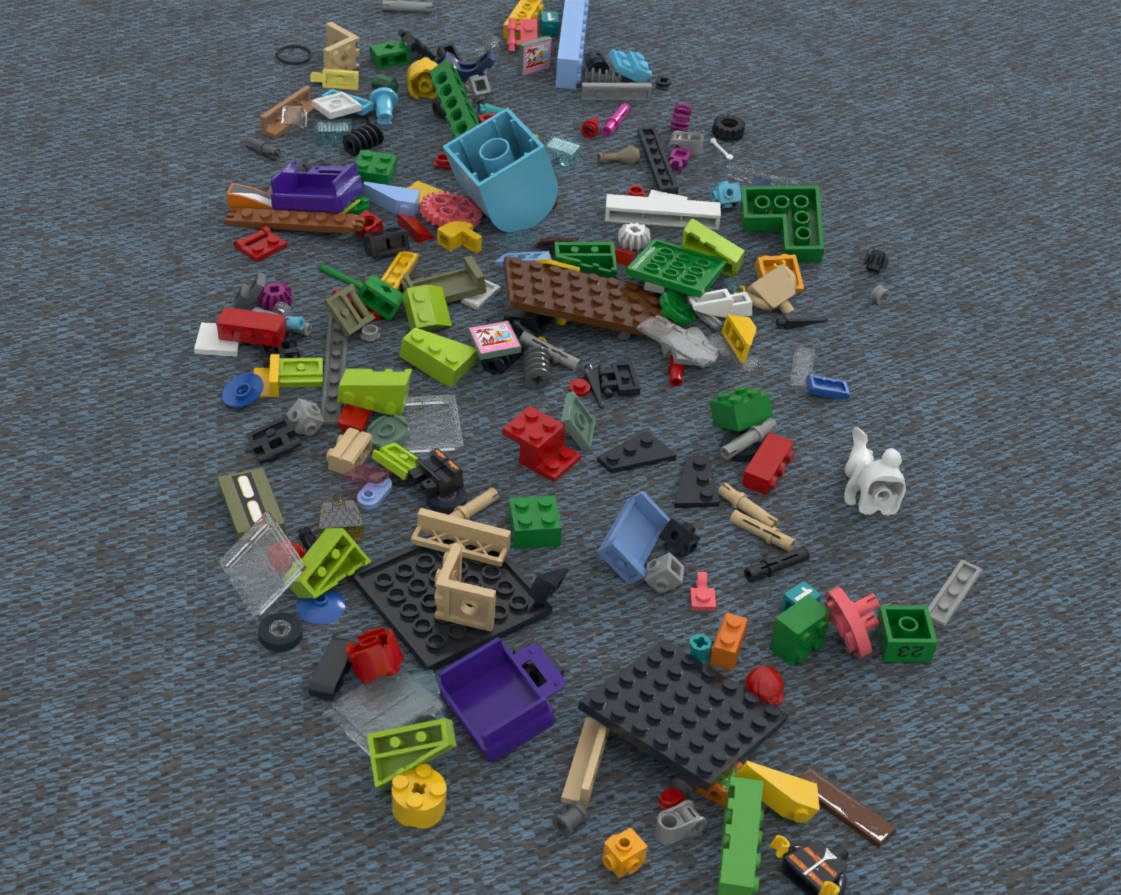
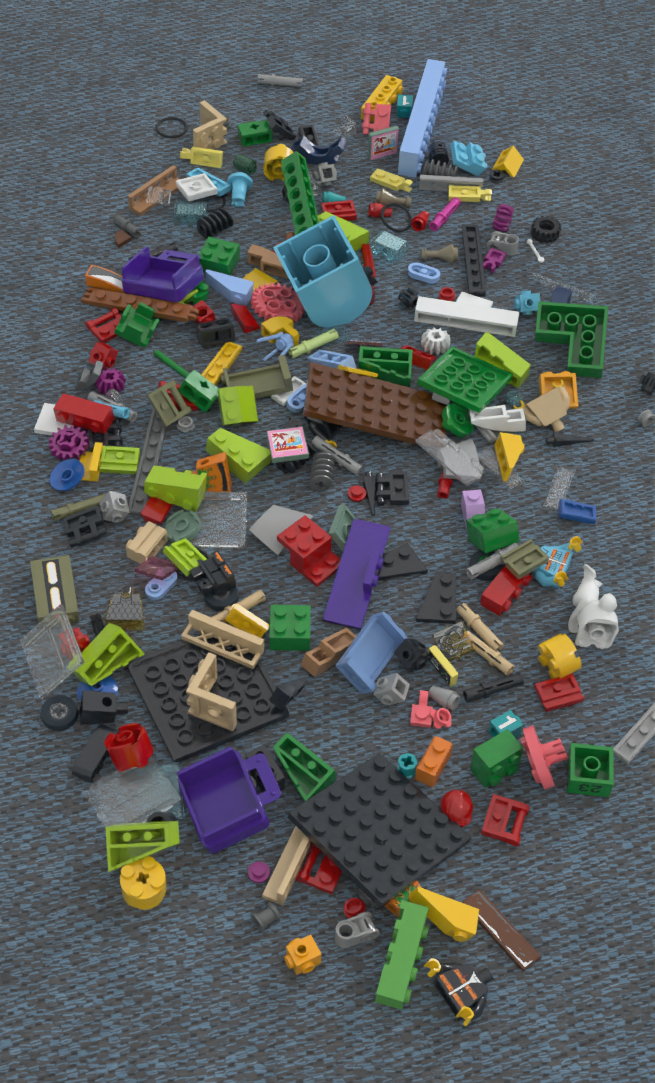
camera: 10 degrees right, 10 degrees up
(238, 359) = (68, 443): none -> magenta gear
(254, 423) = (74, 508): none -> olive pin
(259, 160) = (122, 238): none -> reddish brown tile
(264, 266) = (104, 354): none -> red brick
(295, 239) = (137, 324): none -> green panel
(329, 619) = (100, 707): none -> black torso
(421, 377) = (217, 472): none -> orange torso
(431, 173) = (266, 260): none -> medium nougat slope
(465, 247) = (283, 342): none -> light blue plant
(480, 512) = (246, 621): none -> yellow panel
(489, 423) = (273, 523): none -> light grey slope
(495, 300) = (297, 398): none -> light blue plate
(502, 245) = (307, 346): none -> yellowish green pin
(542, 119) = (375, 209): none -> red cone
(547, 107) = (384, 197): none -> dark tan piece
(549, 92) = (391, 180): none -> light yellow plate
(551, 774) = (258, 872): none -> magenta plate
(568, 115) = (387, 225): none -> black tyre
(582, 544) = (327, 652): none -> medium nougat slope
(583, 659) = (303, 767): none -> green wedge
(595, 198) = (408, 298): none -> black gear
(599, 463) = (357, 574): none -> dark purple bracket
(605, 175) = (423, 273): none -> light blue plate
(633, 765) = (326, 876): none -> red plate
(638, 99) = (469, 193): none -> light yellow plate
(674, 67) = (509, 160): none -> yellow panel
(709, 386) = (472, 504): none -> lavender slope
(716, 547) = (443, 666): none -> light yellow tile
(722, 523) = (453, 641): none -> piece
(725, 578) = (446, 698): none -> light grey cone
(726, 598) = (444, 714): none -> coral plate
(784, 431) = (524, 559): none -> olive plate
(813, 694) = (498, 816): none -> red plate
(814, 437) = (554, 571): none -> torso
(844, 525) = (559, 656): none -> yellow brick
(851, 563) = (559, 692): none -> red plate

